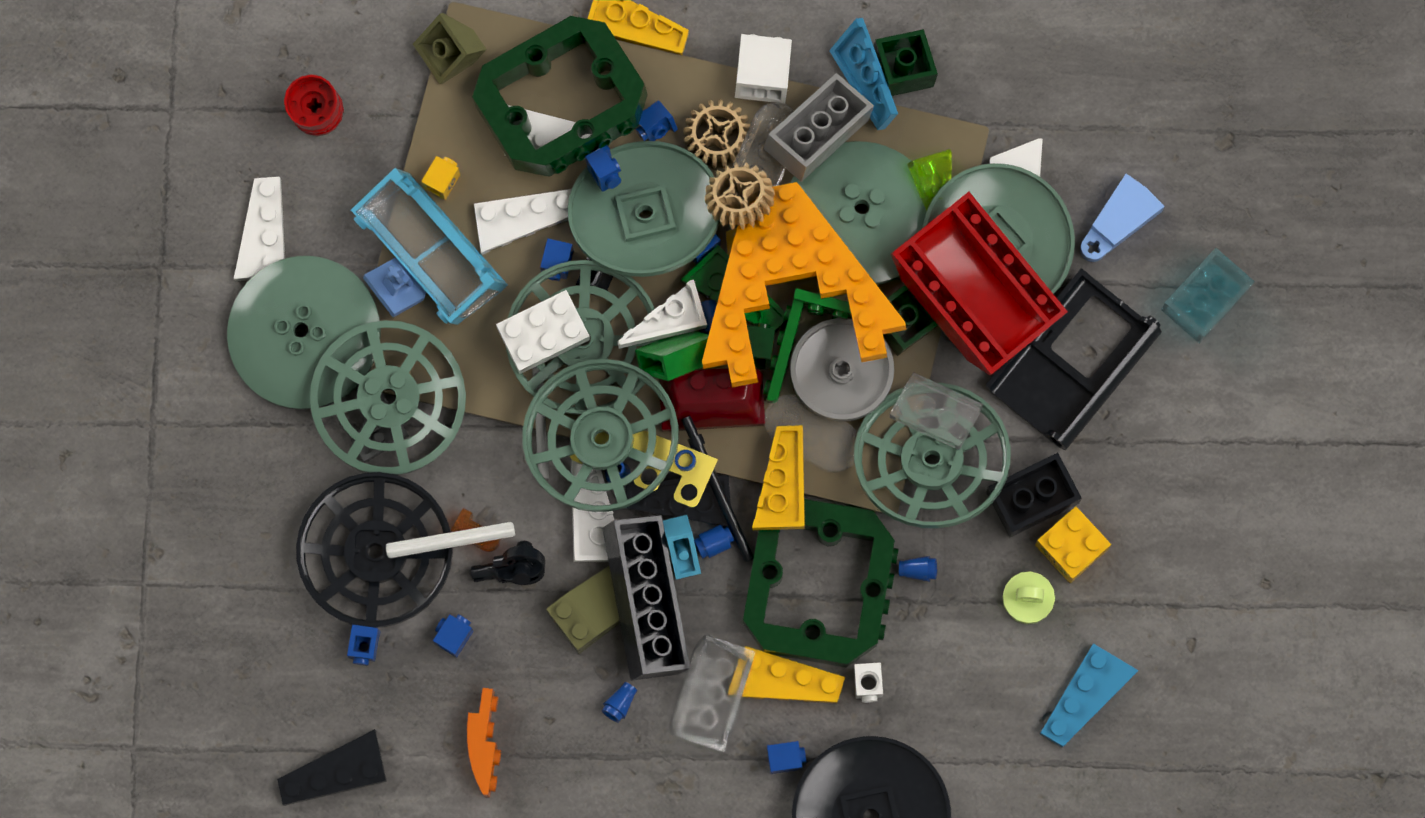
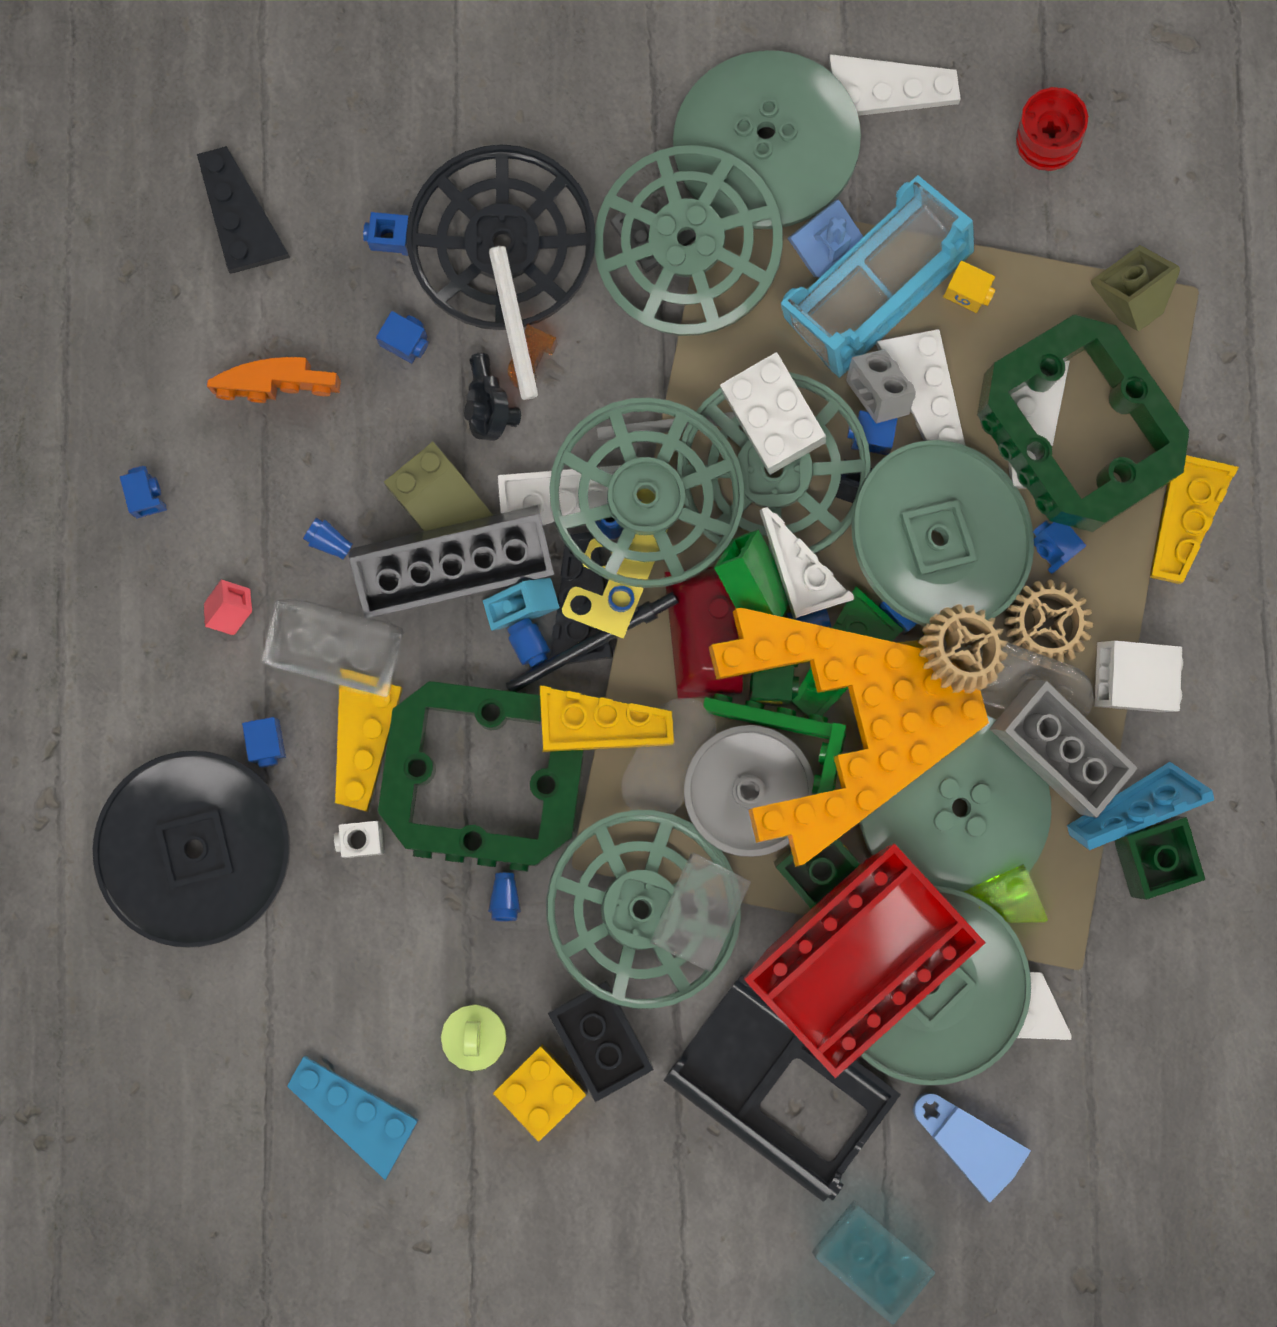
camera: 85 degrees right, 5 degrees up
(521, 249) = (880, 386): none -> light grey brick
(603, 168) = (991, 481): blue brick -> none
(673, 785) = (227, 607): none -> coral panel

